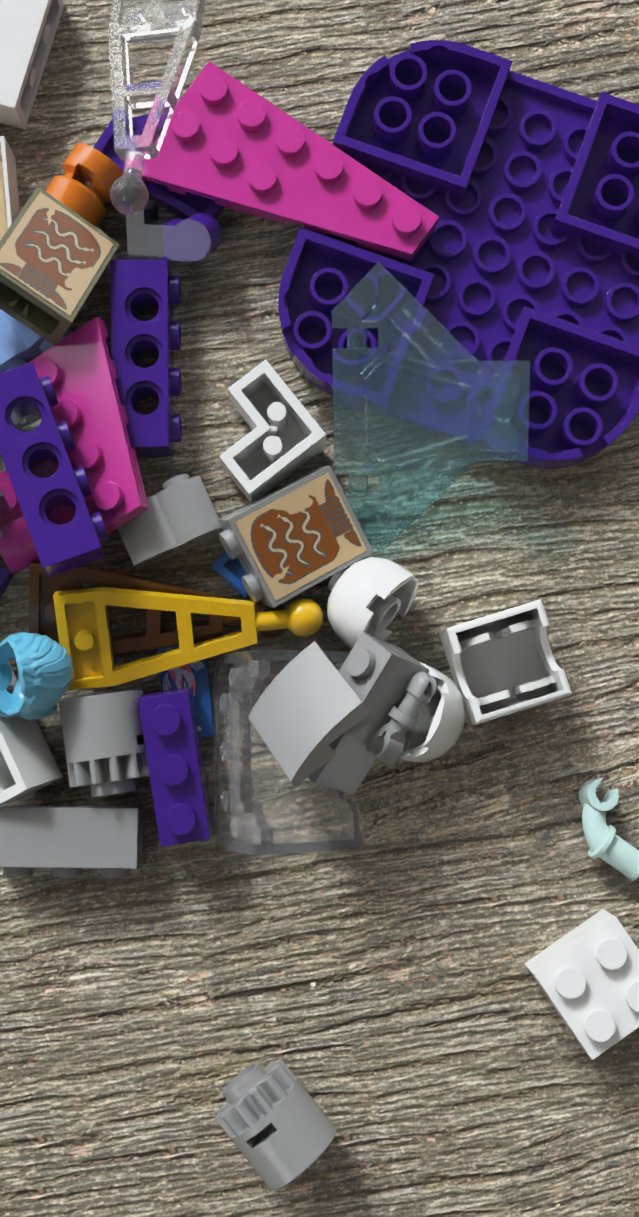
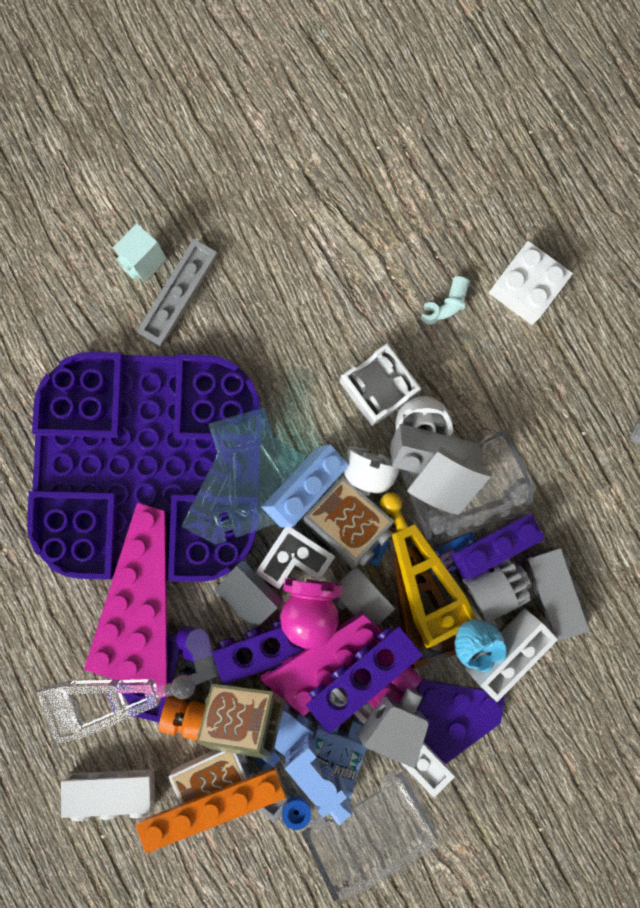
camera: 110 degrees left, 0 degrees up
(173, 420) = (310, 614): none -> dark pink tile
(236, 344) = (248, 595): none -> dark grey tile
(378, 484) = (305, 486): none -> light blue brick
(389, 740) = (444, 432): light grey piece -> none

